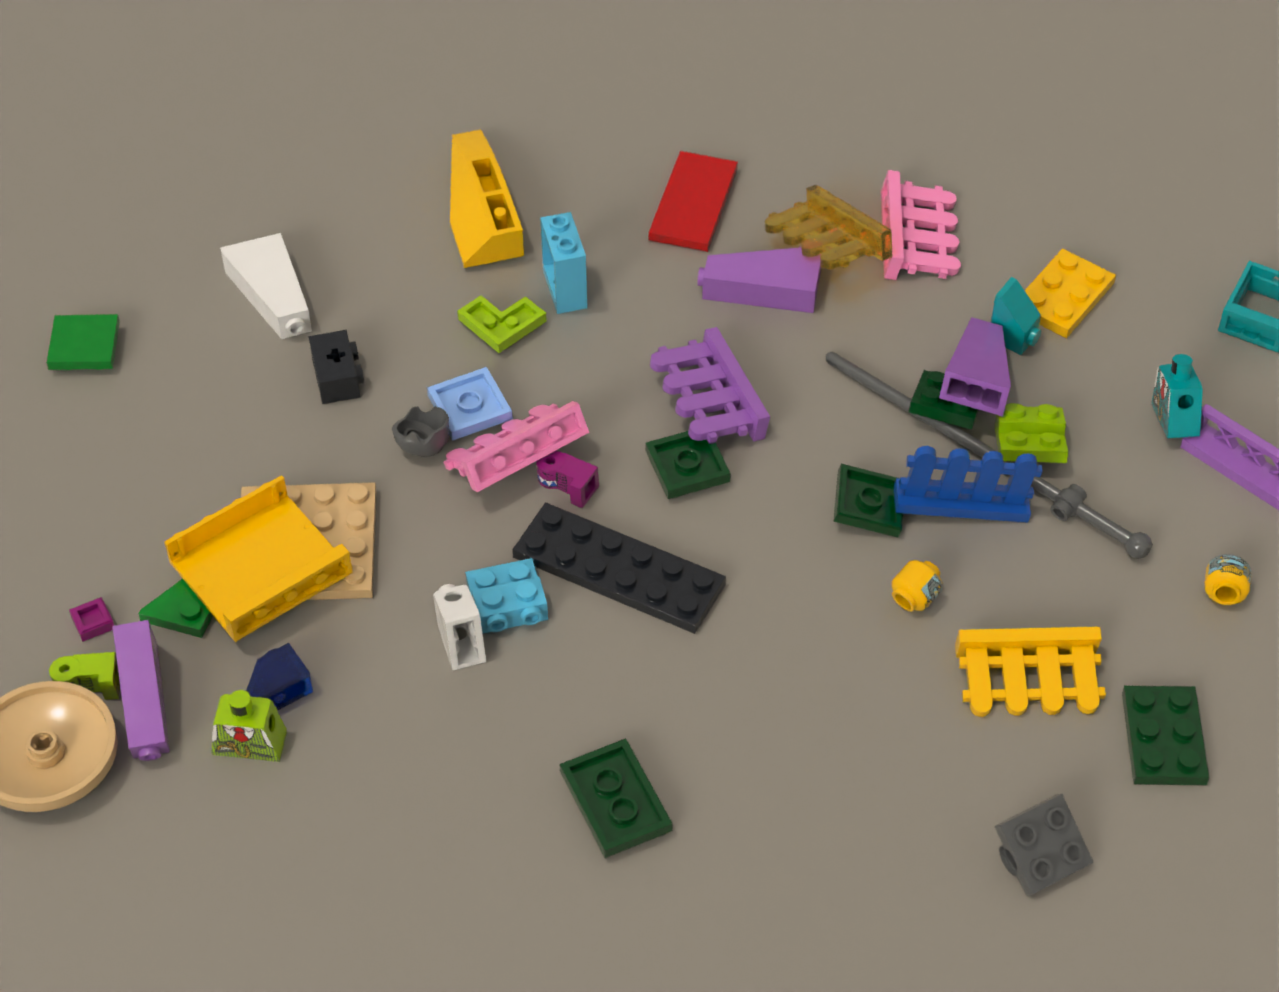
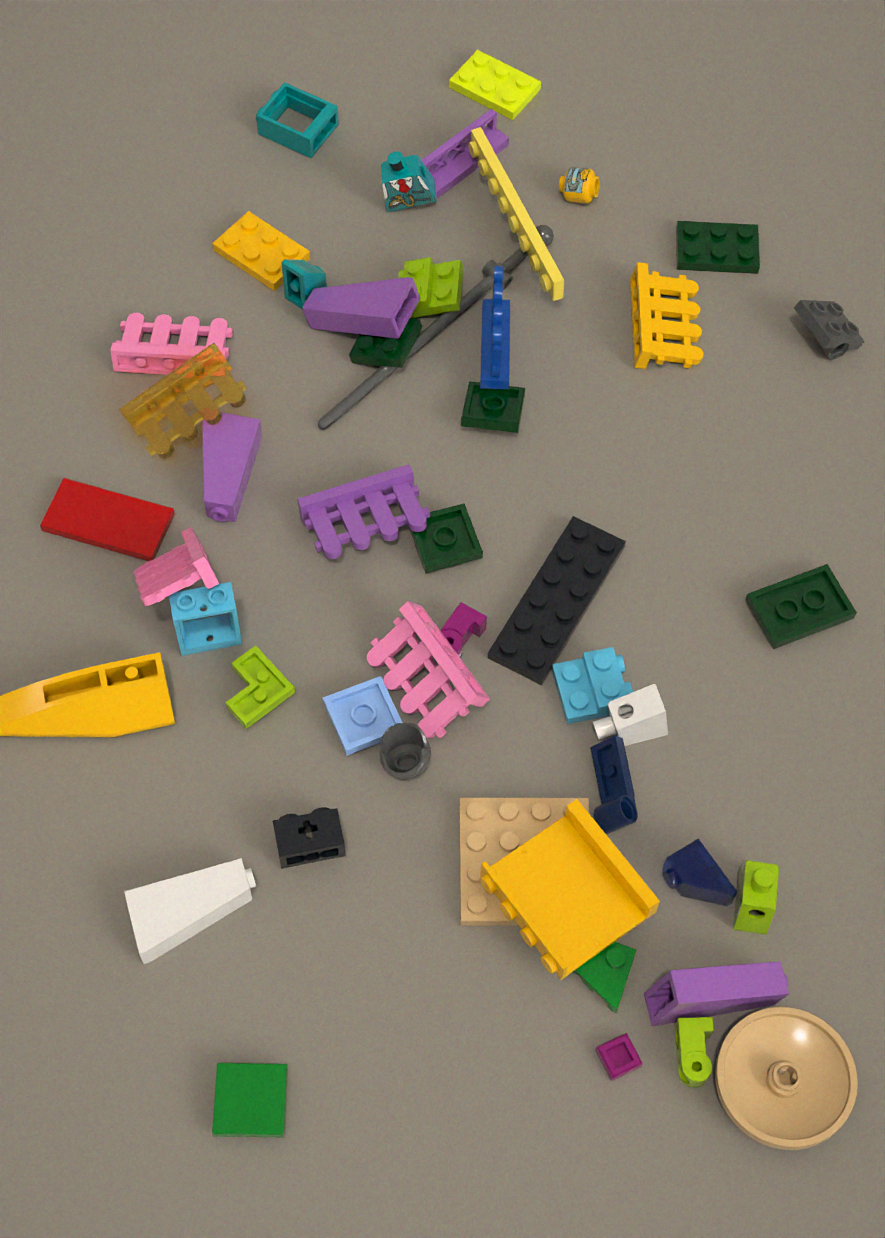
camera: 90 degrees left, 10 degrees up
(383, 612) = (614, 785): none -> dark blue plate
(617, 238) = (175, 570): none -> bright pink fence
(917, 585) = (587, 380): yellow head -> none
(1153, 504) = (518, 218): none -> light yellow plate

